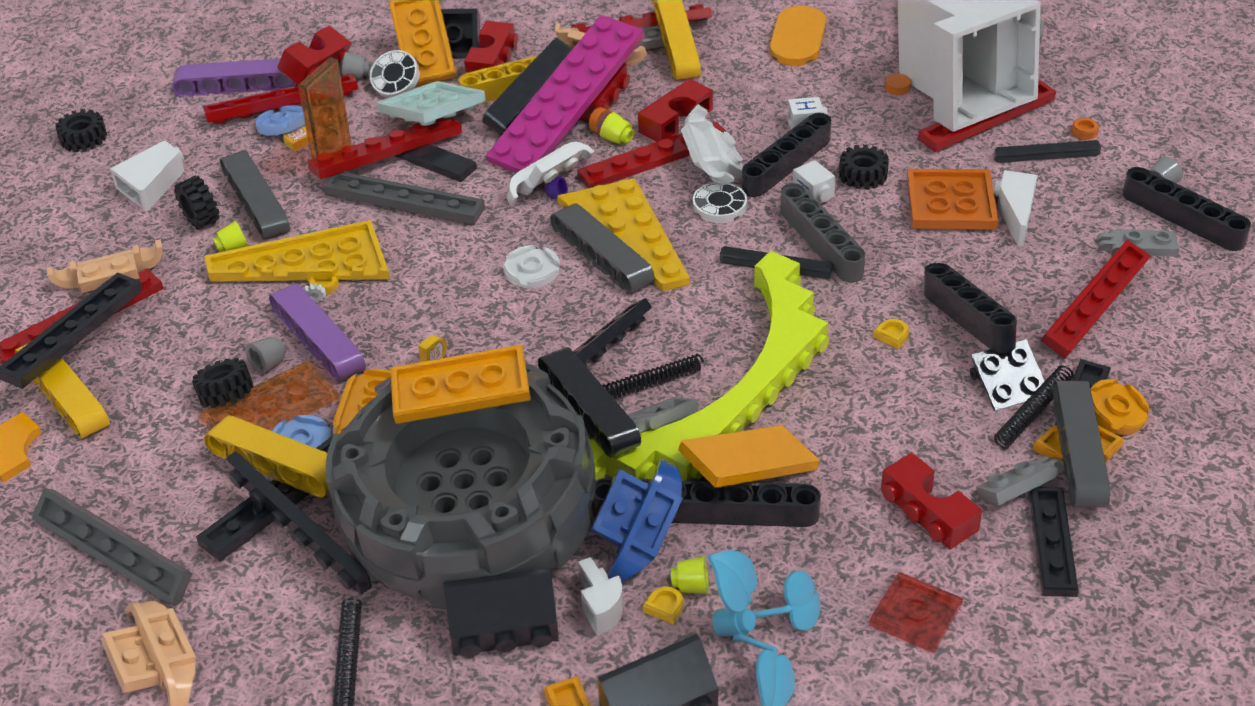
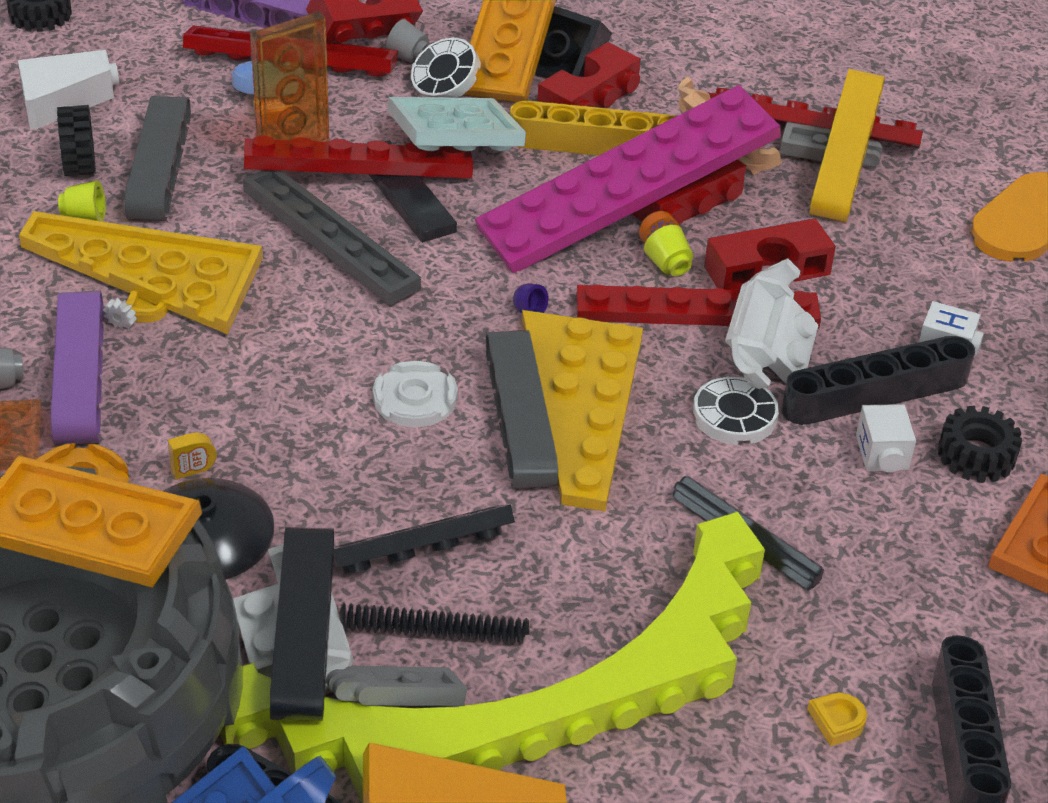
camera: 25 degrees right, 0 degrees up
(527, 84) = (586, 143): black beam -> none
(547, 169) = (525, 267): white plate -> none
(822, 232) = (842, 518): dark grey beam -> none

